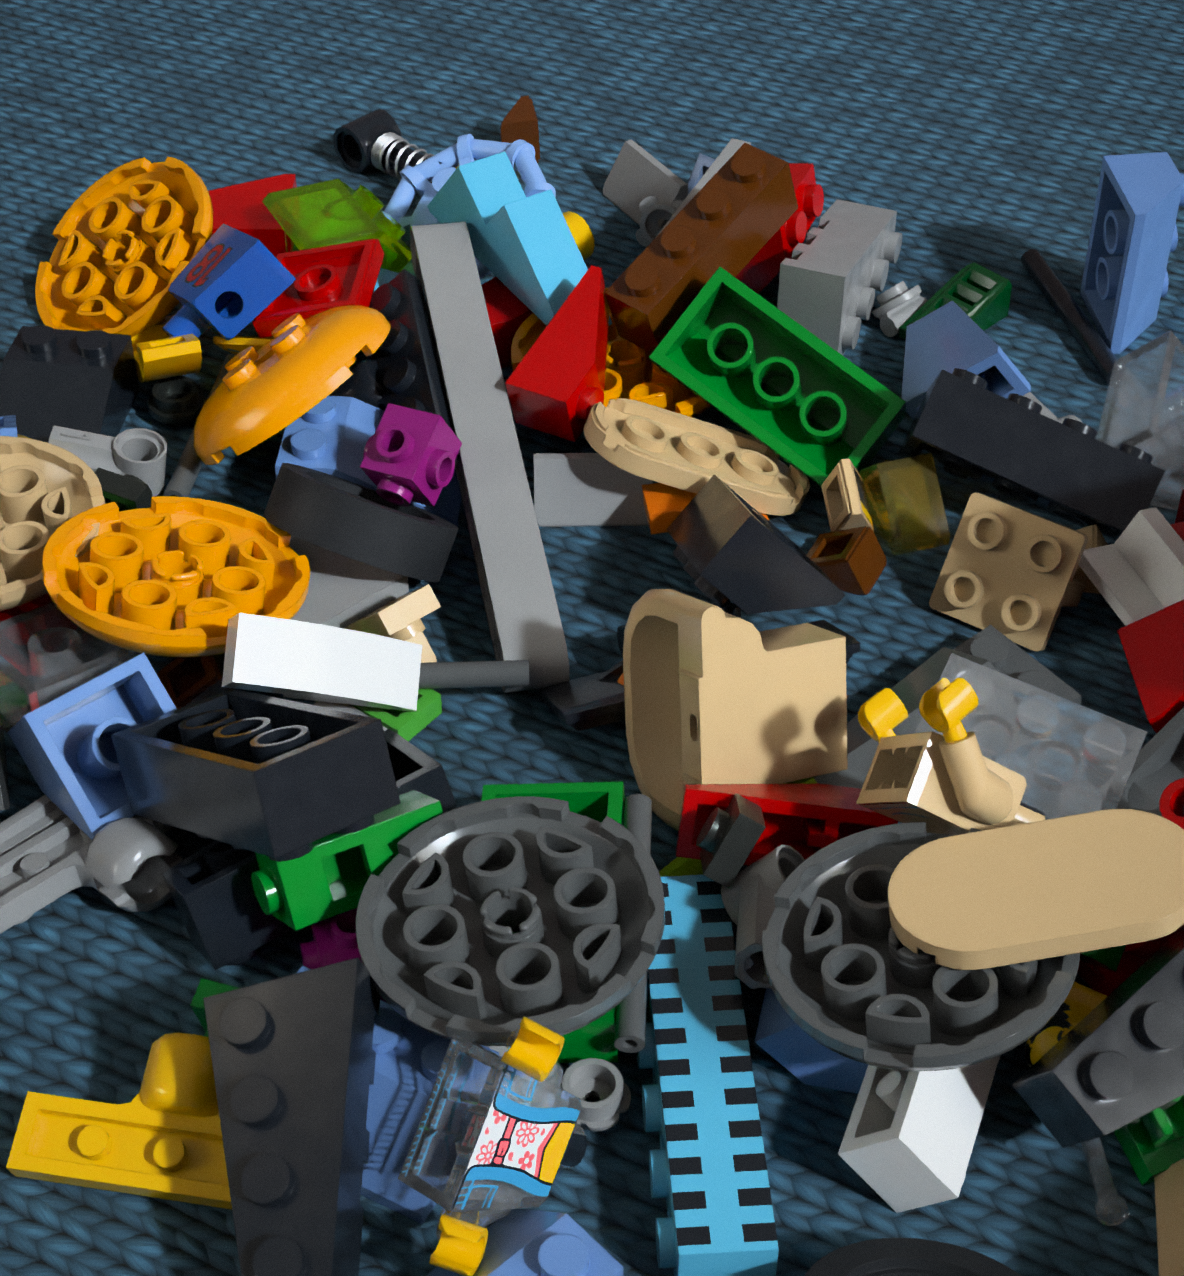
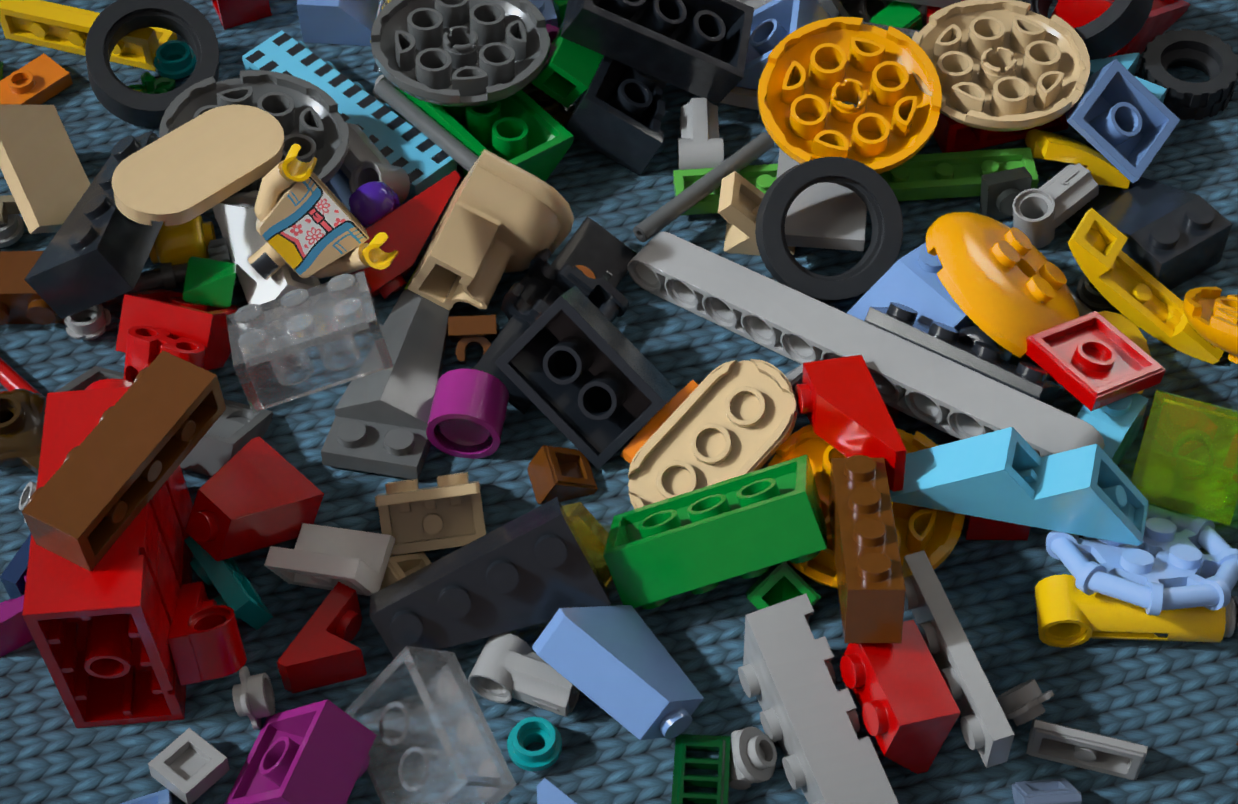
camera: 140 degrees right, 10 degrees up
(226, 285) = (1141, 312): blue torso -> none
(321, 663) = (716, 112): white slope -> none
(410, 456) = (851, 274): magenta brick -> none
(729, 839) = (413, 170): pearl dark grey plate -> none
(821, 813) = (373, 202): none -> dark purple piece
(846, 498) = (592, 491): tan slope -> none
(899, 621) = (467, 413): none -> magenta piece
(1068, 395) = (529, 731): none -> teal plate

